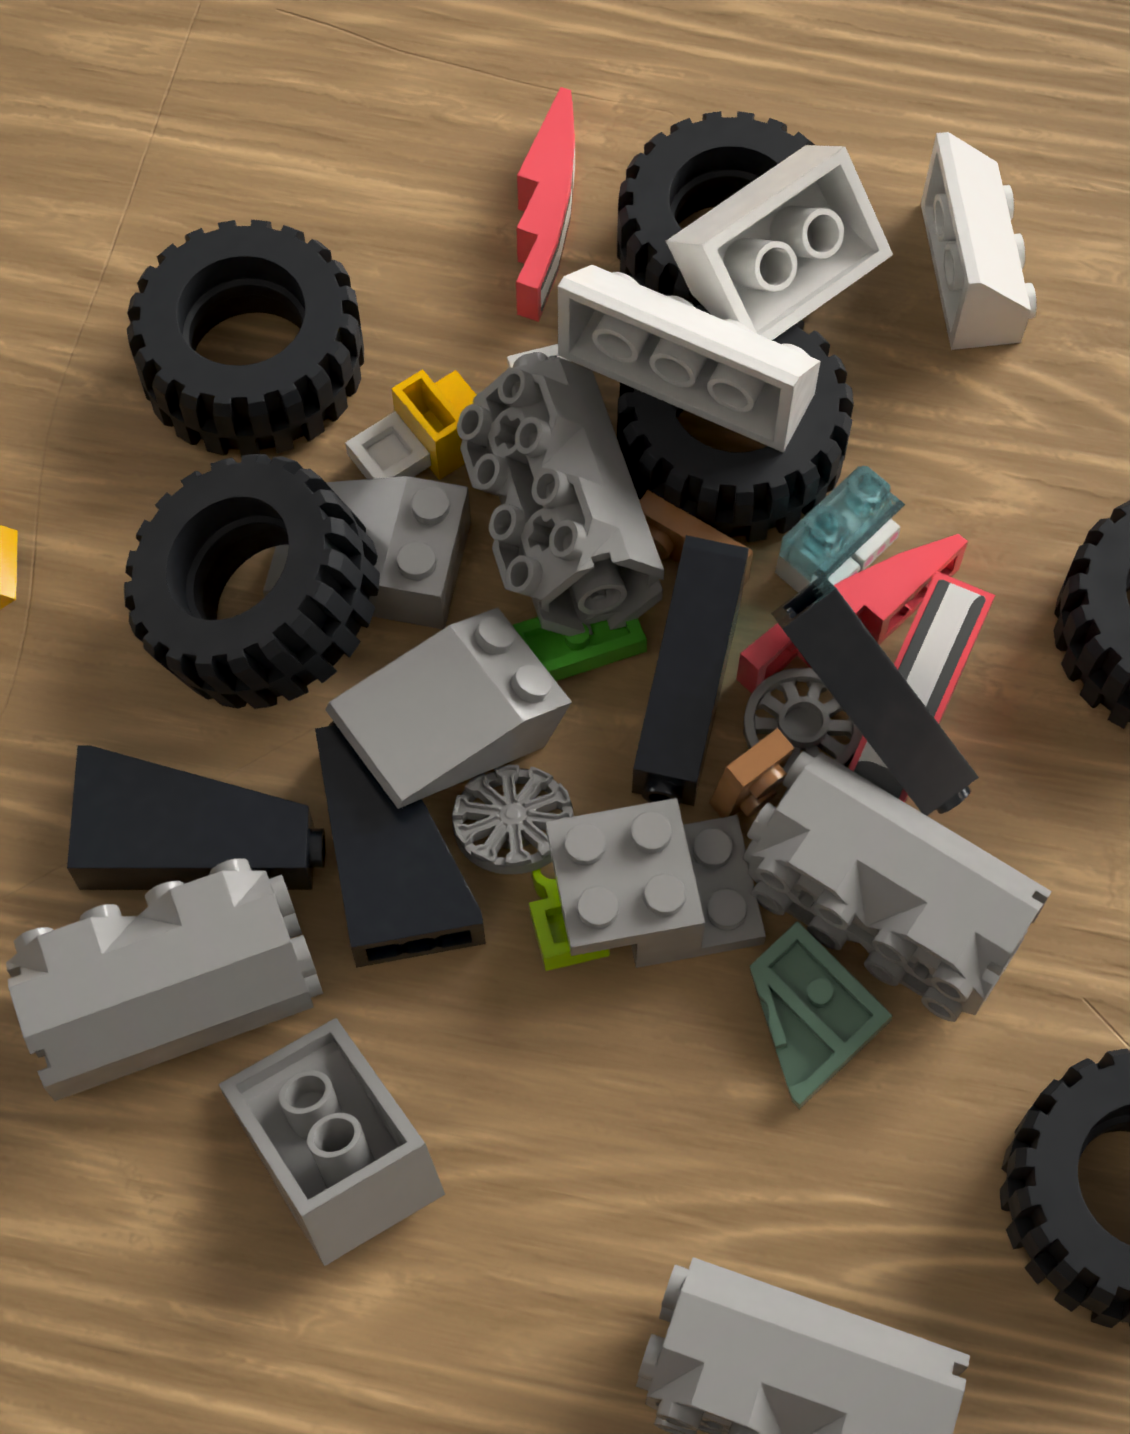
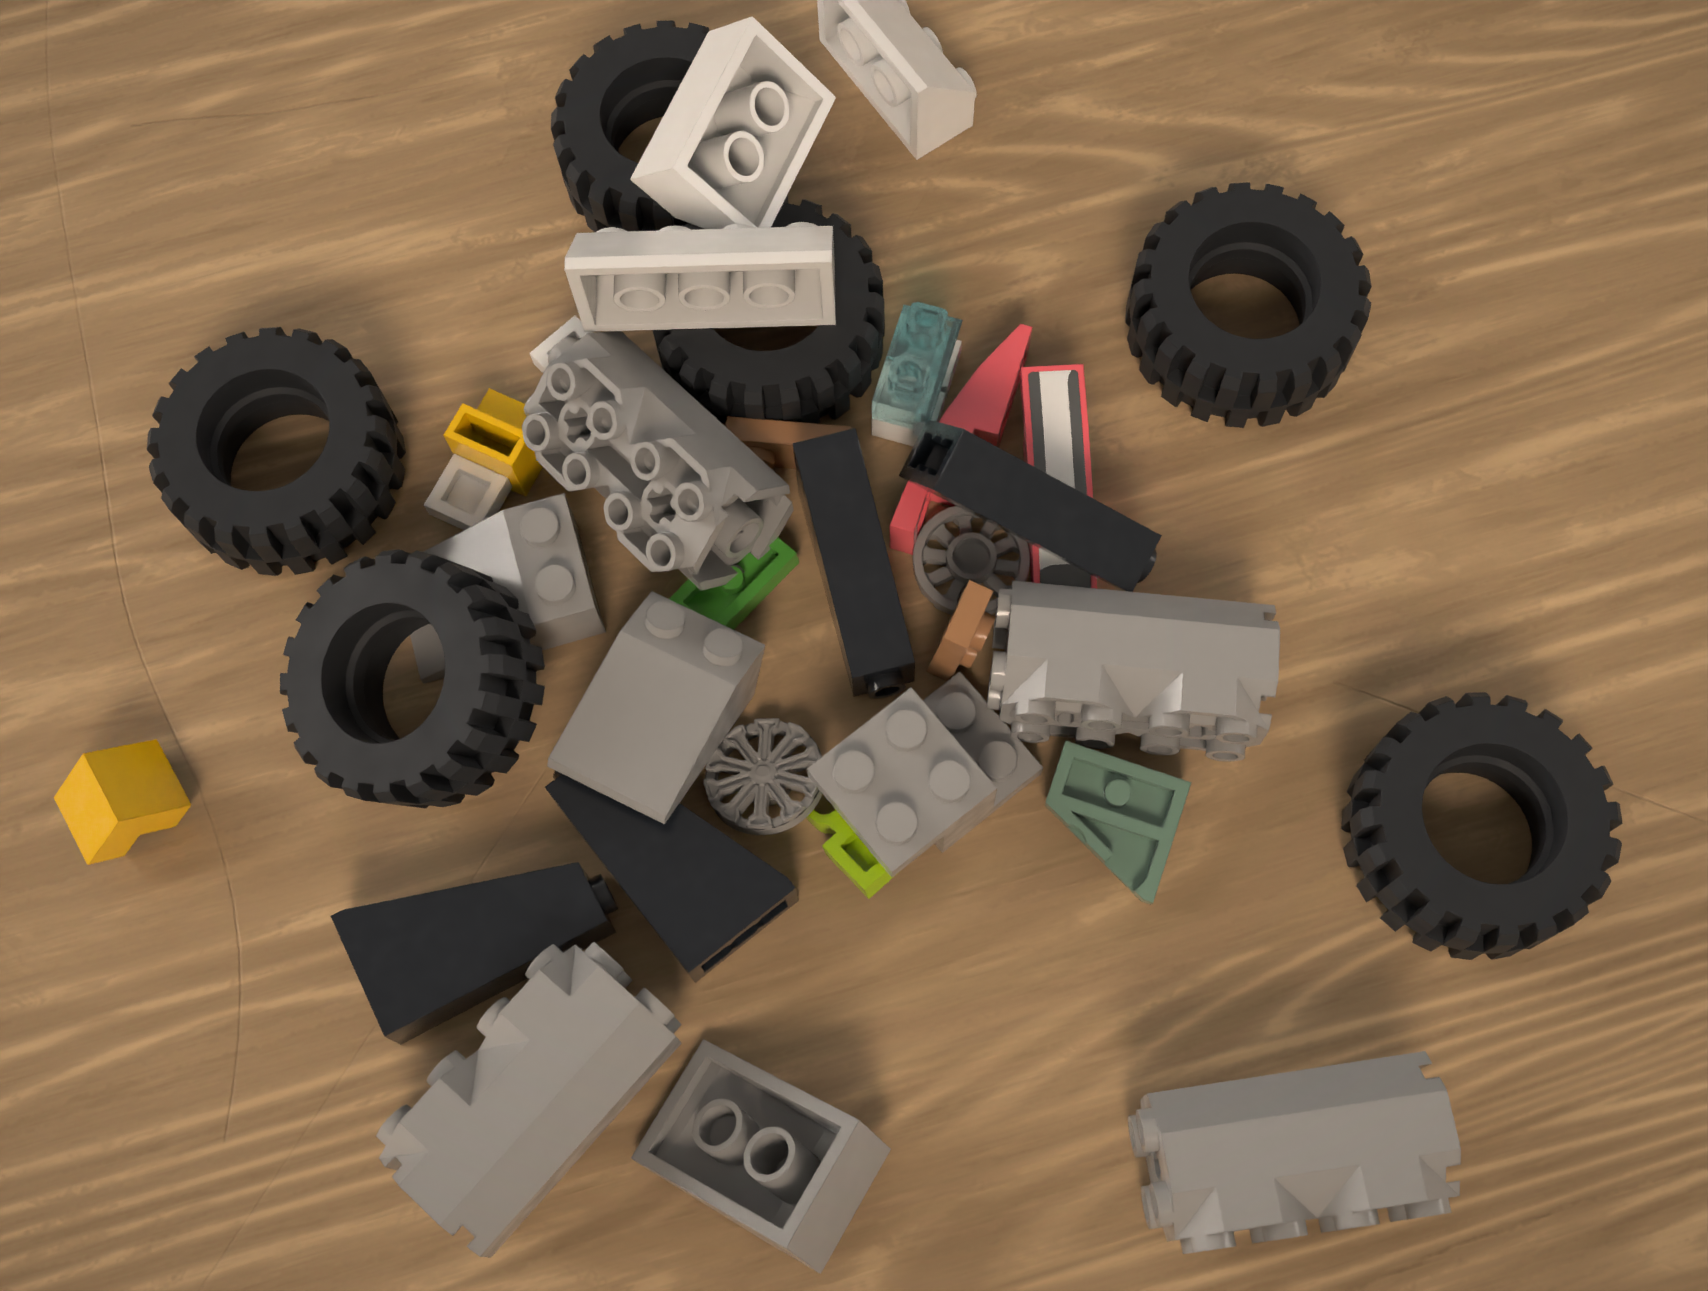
camera: 25 degrees left, 5 degrees up
(546, 198) = (484, 186): coral slope -> none

